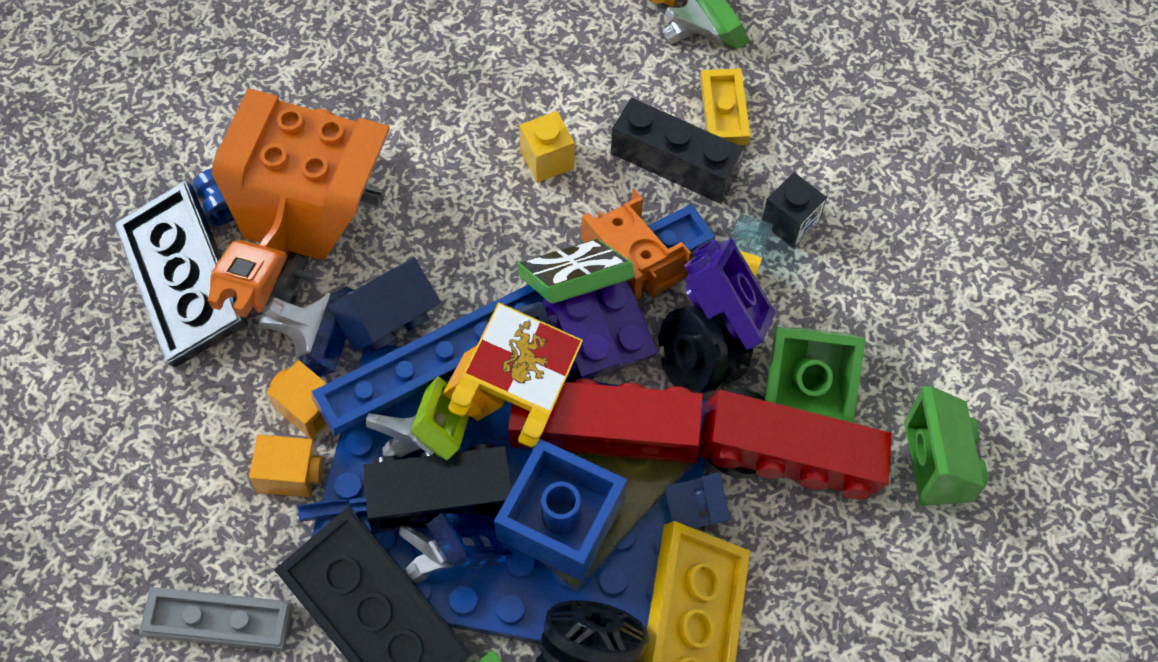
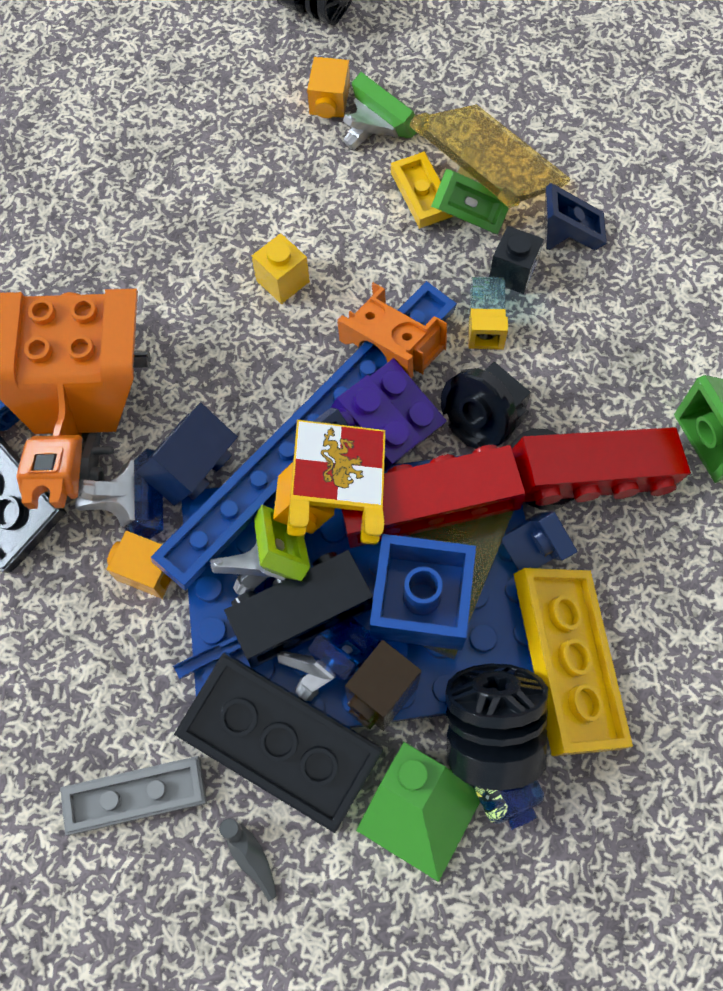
camera: 15 degrees left, 5 degrees up
(285, 466) = (148, 631): light orange brick -> none
(487, 588) = (381, 687): none -> dark brown brick
(575, 270) = (353, 369): tile -> none
(676, 150) = (395, 238): black brick -> none
(724, 282) = (490, 343): dark purple plate -> none
(766, 134) = (469, 201): none -> bright green piece
(809, 91) = (489, 153): none -> clear yellow piece
(816, 371) = (592, 393): bright green slope -> none
(870, 184) = (573, 218): none -> dark blue slope

